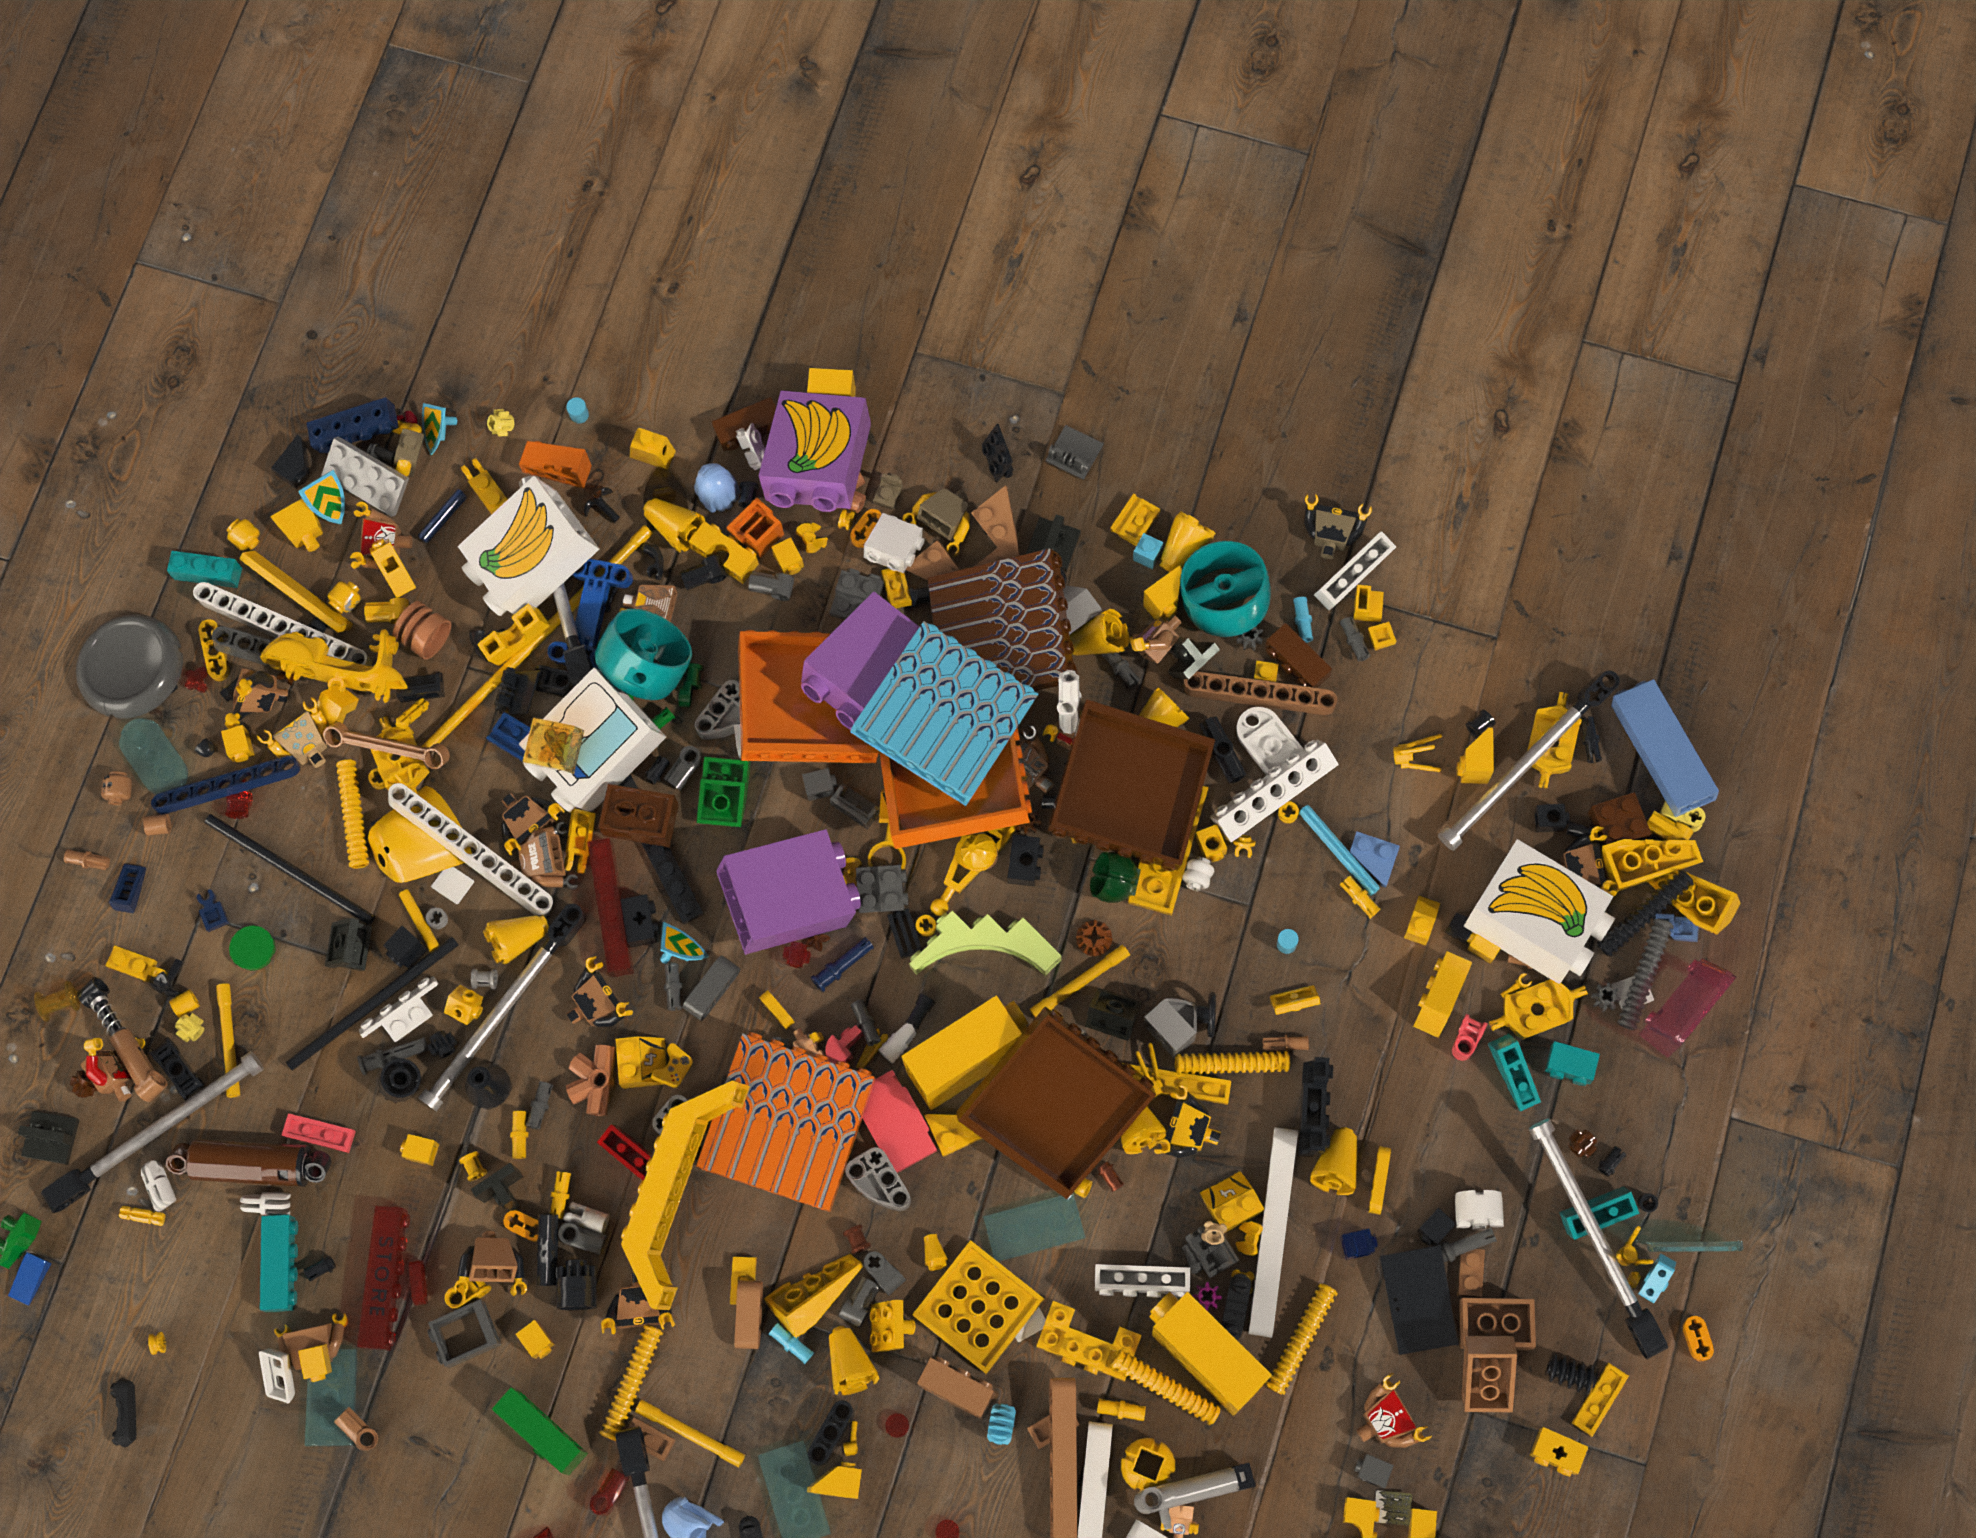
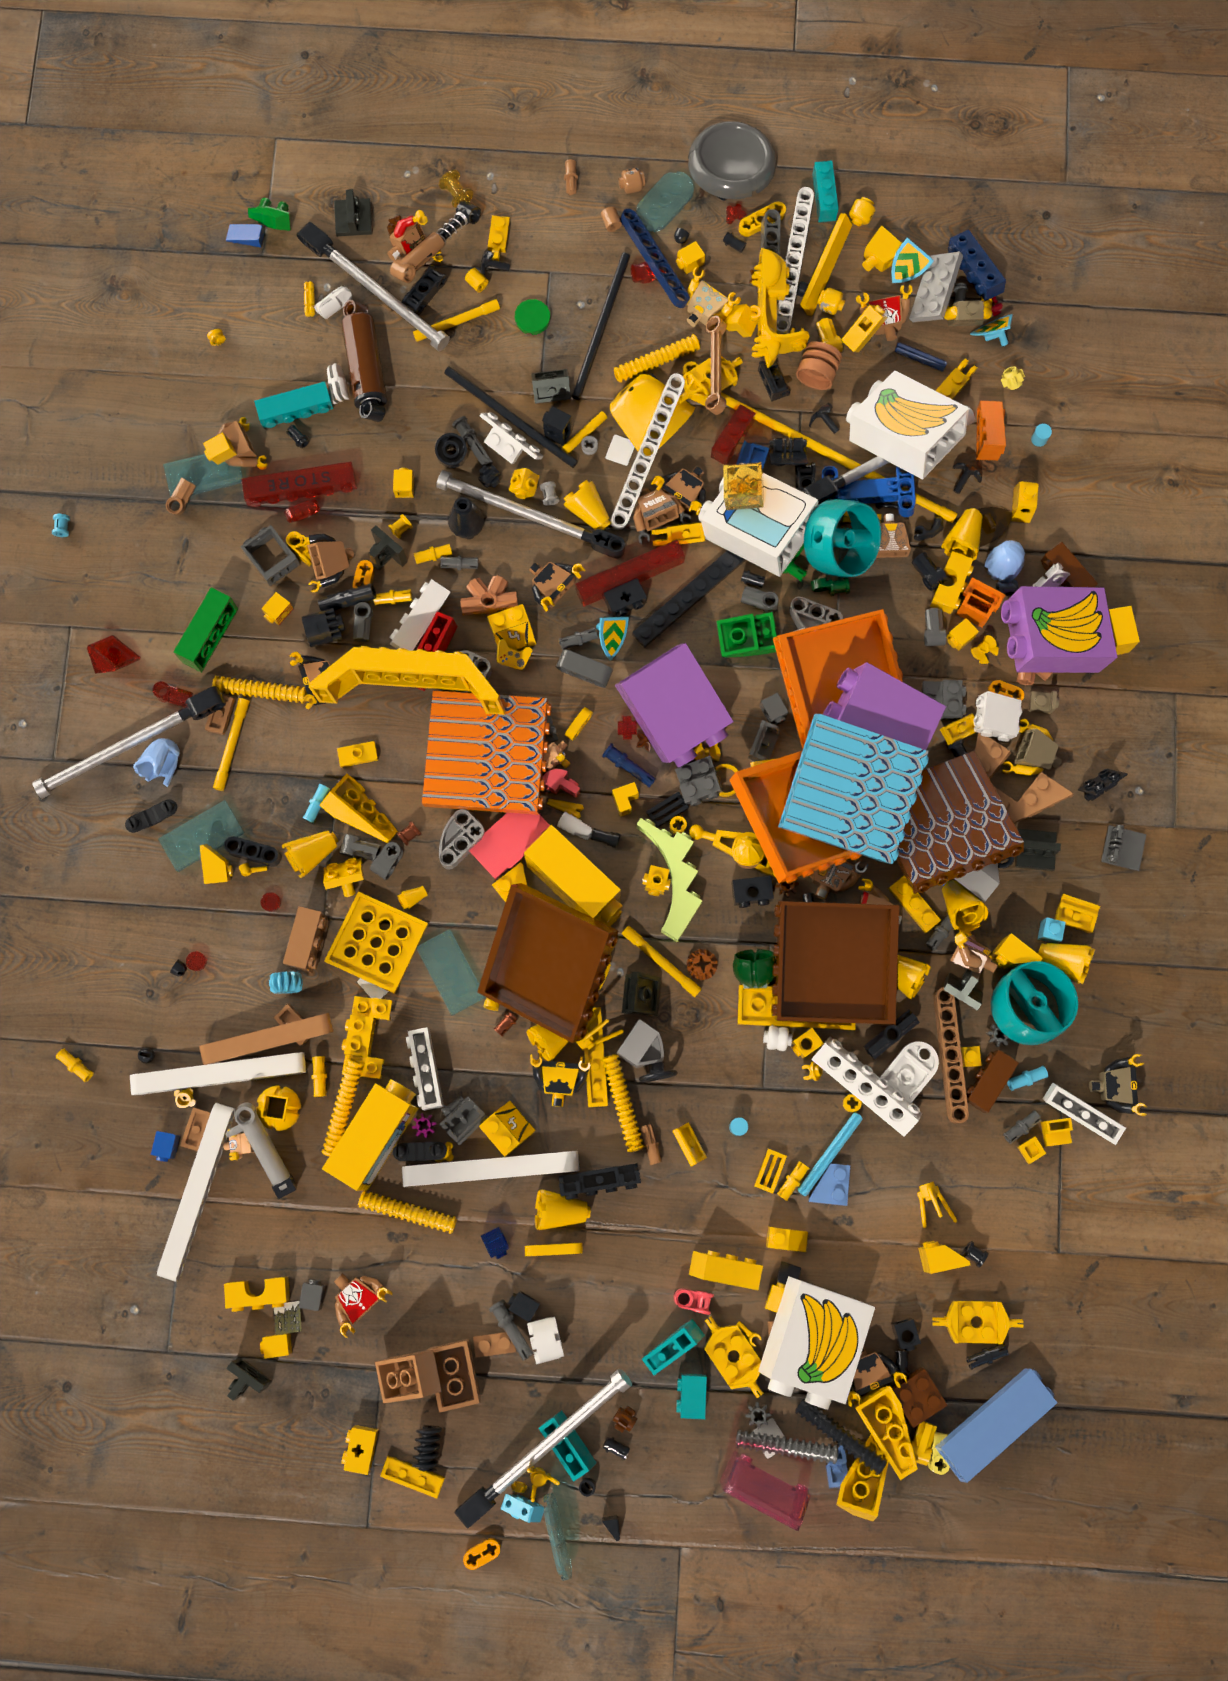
camera: 70 degrees right, 5 degrees up
(126, 1421) = (161, 330): black piece -> none
(127, 902) = (549, 219): dark blue slope -> none
(189, 1027) = (458, 288): light yellow gear -> none
(213, 913) = (552, 280): dark blue plate -> none
(253, 694) = (732, 255): torso -> none
(271, 1373) = (208, 427): white piece -> none
(293, 463) = (932, 231): black slope -> none
(318, 1133) = (399, 406): coral plate -> none
(412, 713) = (748, 378): yellow axle -> none
(475, 748) = (728, 440): none -> clear red arch
(503, 645) = (823, 431): yellow arch -> none
(589, 1218) = (379, 624): white hinge -> none
(596, 1167) = (420, 617): none -> white brick
(638, 815) = (707, 571): reddish brown piece -> none
(748, 1314) = (330, 764): medium nougat beam -> none
(845, 519) = (1008, 673): yellow bush -> none
(865, 1022) = (585, 796): dark grey pin -> none
(878, 980) = (622, 797): none -> yellow piece
(983, 956) = (659, 874): none -> yellow brick
(1069, 701) = (894, 891): white piece -> none
(1089, 685) = (914, 905): none -> yellow plate
(1214, 1238) = (474, 1119): tan plate -> none
(1249, 1246) = (473, 1151): yellow piece -> none
(1348, 912) = (764, 1187): none -> yellow tile
(1420, 1288) = (466, 1305): black container -> none
(1452, 836) = (865, 1249): flat silver piece -> none
(1693, 1183) = (612, 1525): none -> black slope

